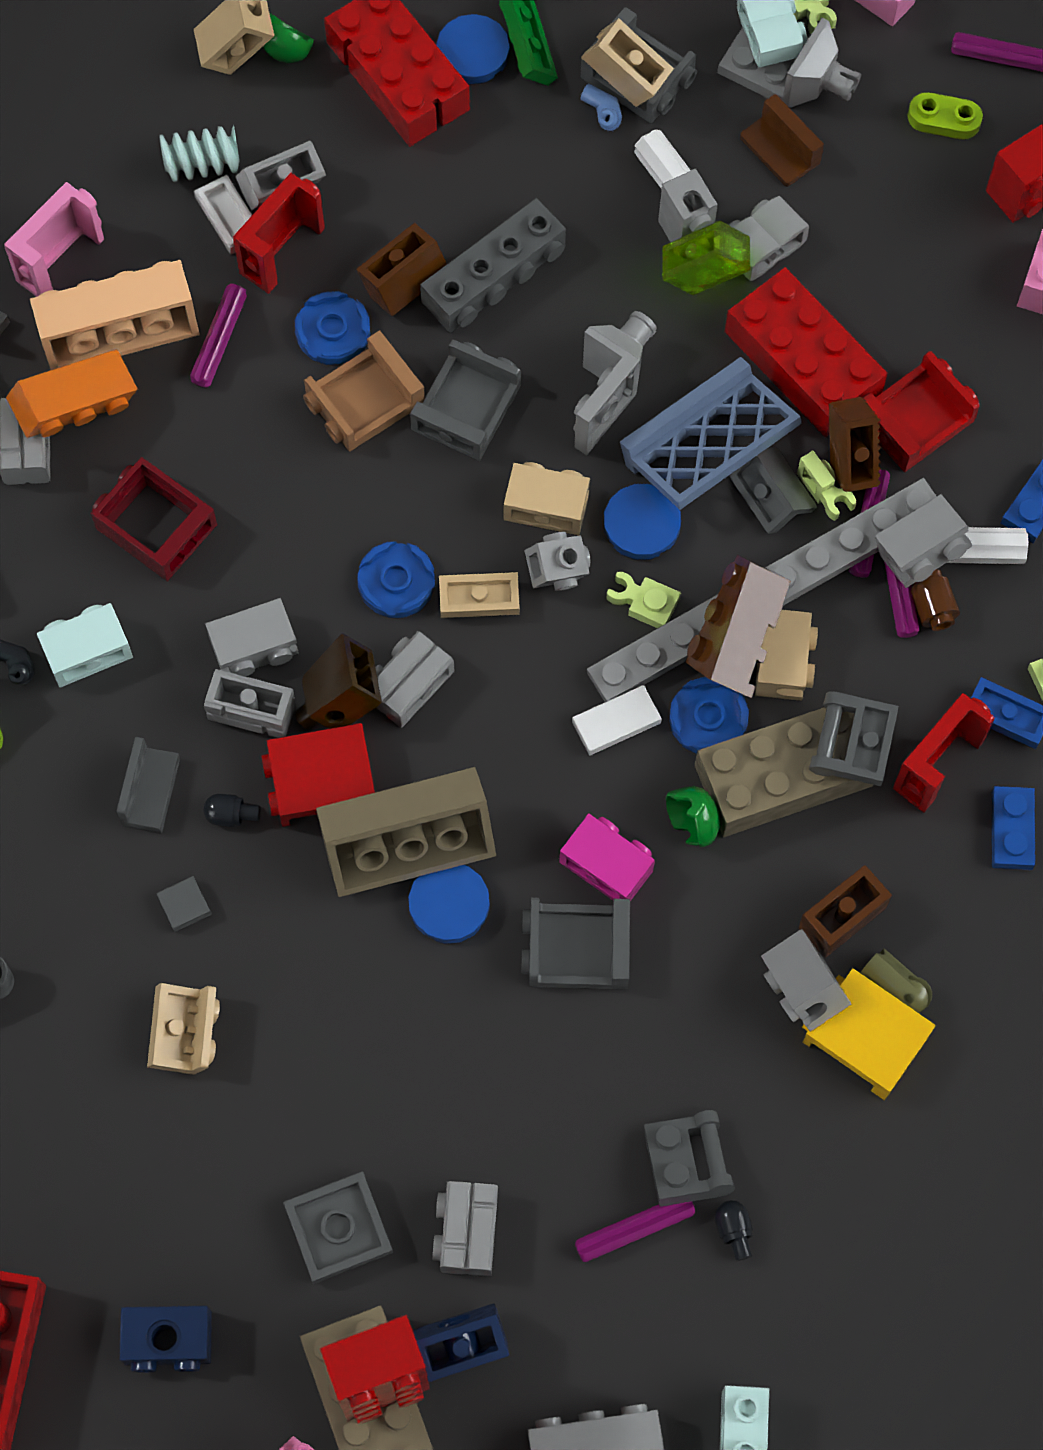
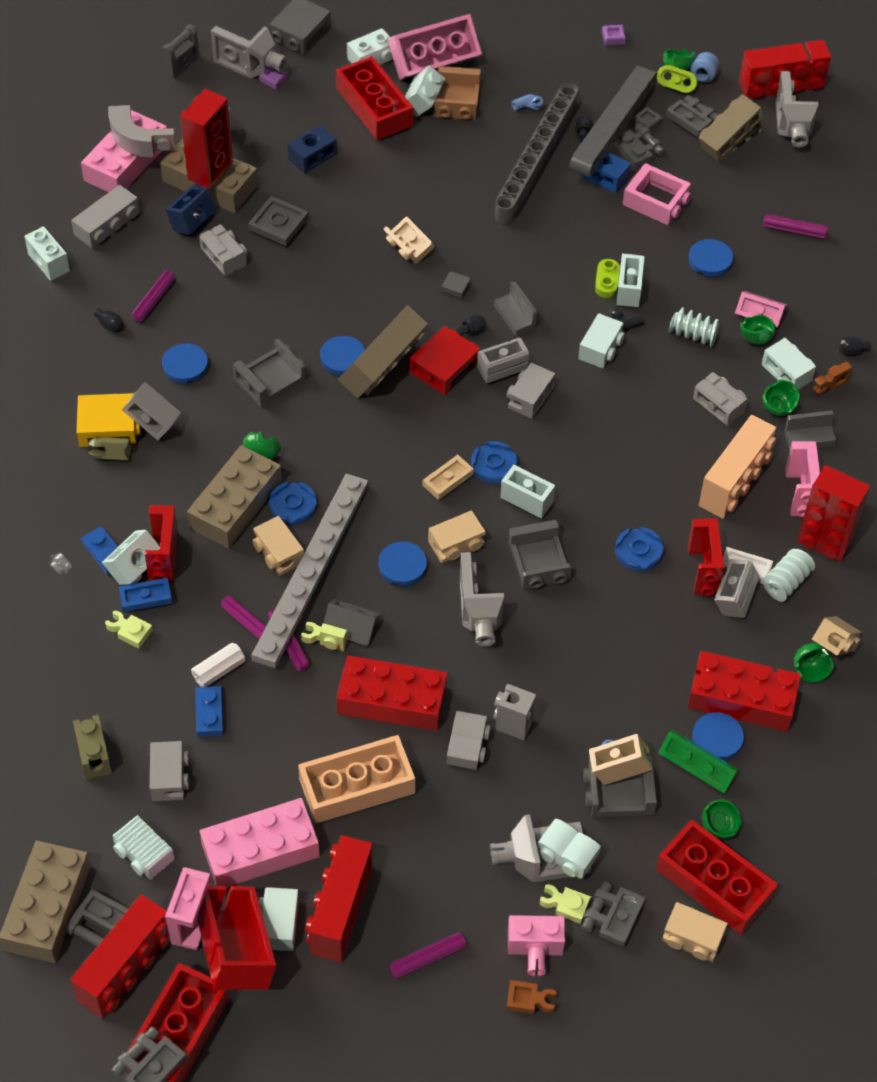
camera: 140 degrees right, 15 degrees down
(72, 394) = (716, 418): orange brick -> none
(93, 135) = (833, 513): none -> red brick
(183, 540) = (627, 391): dark red window -> none
(218, 335) = (684, 499): magenta axle -> none
(339, 686) = (468, 387): dark brown torso -> none
(364, 394) = (591, 525): medium nougat panel -> none
(400, 267) = (630, 586): reddish brown brick -> none
(405, 484) = (527, 491): none -> light aqua brick
(411, 677) = (445, 421): light grey brick -> none
(493, 266) = (590, 626): dark grey brick -> none
(558, 561) = (423, 508): light grey brick -> none
(607, 858) = (285, 409): dark pink brick -> none
(616, 720) = (334, 471): white tile -> none
(649, 603) = (366, 532): yellowish green plate -> none
(660, 157) = (552, 742): white axle -> none
(674, 1161) = (155, 322): dark grey plate -> none
(681, 1062) = (185, 363): none -> blue tile
(691, 418) = (421, 622): sand blue fence -> none
(706, 258) = (480, 691): clear neon green brick -> none
(737, 625) = (307, 521): wedge -> none
(783, 142) = (504, 804): reddish brown panel -> none
(845, 911) = (156, 453): reddish brown brick -> none
(854, 444) = (323, 649): reddish brown brick -> none
(867, 743) = (200, 509): dark grey plate -> none
(922, 411) = (308, 707): red panel -> none
(923, 541) = (248, 625): light grey brick -> none
(935, 273) = (356, 779): none -> light nougat brick
(935, 602) = (223, 620): reddish brown brick -> none
(945, 116) = (432, 891): lime plate -> none
(992, 768) = (120, 561): none -> light aqua brick

